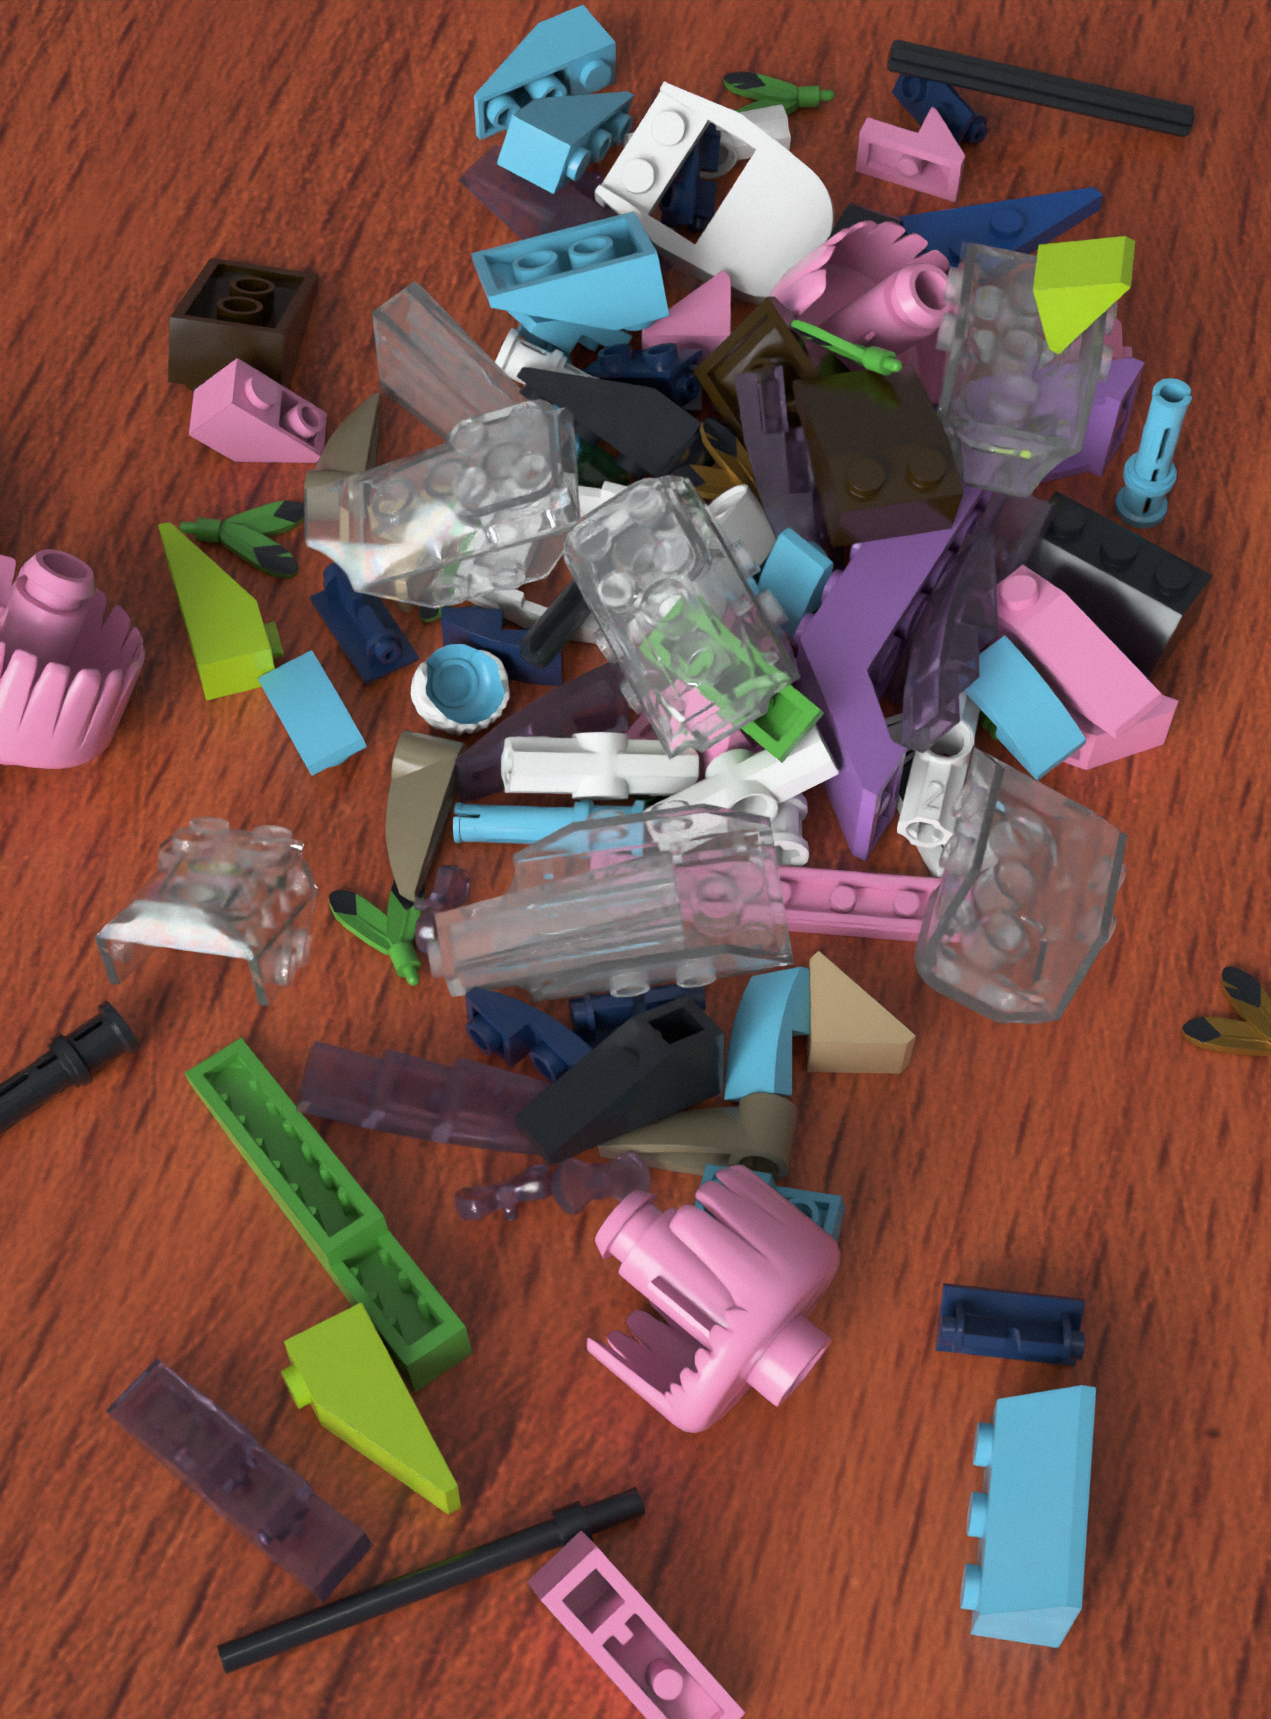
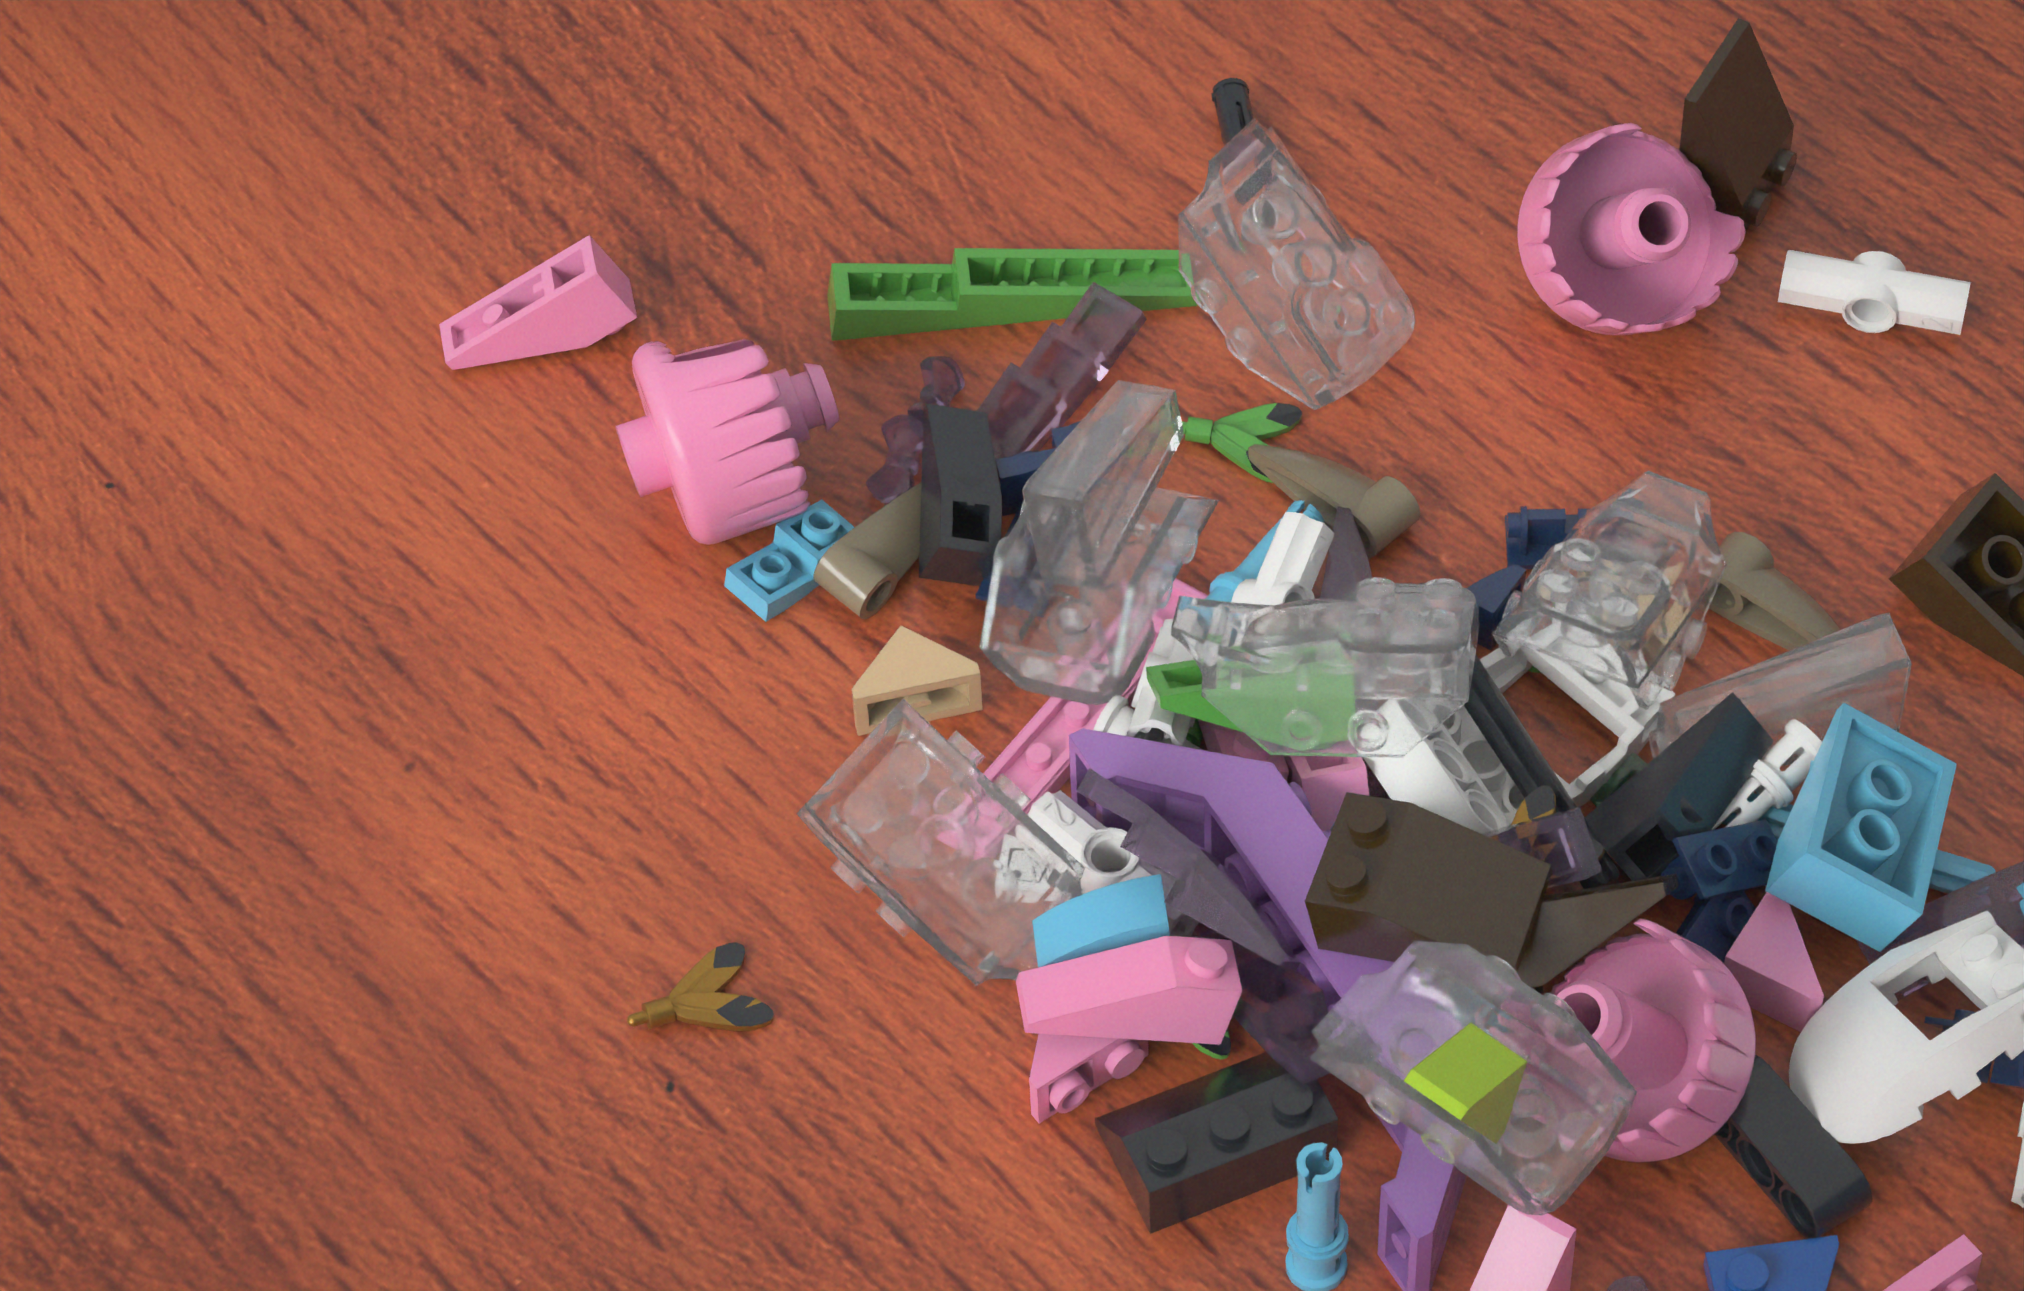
camera: 125 degrees right, 5 degrees down
(220, 620) = (1642, 427): lime slope -> none
(240, 1479) = (848, 154): slope -> none
(249, 533) = (1747, 498): bright green piece -> none
(256, 418) = (1866, 548): bright pink slope -> none
(312, 713) = (1474, 451): medium azure slope -> none
(365, 1403) = (805, 241): lime slope -> none
(431, 1579) = (653, 320): black bar -> none
(450, 892) = (1208, 453): piece -> none
(460, 689) = (1437, 551): medium azure hair -> none
(761, 1038) = (935, 613): medium azure slope -> none
(871, 358) = (1549, 925): bright green piece -> none
(1010, 1325) = (561, 669): dark blue hinge -> none
(1030, 1516) = (428, 579): medium azure slope -> none

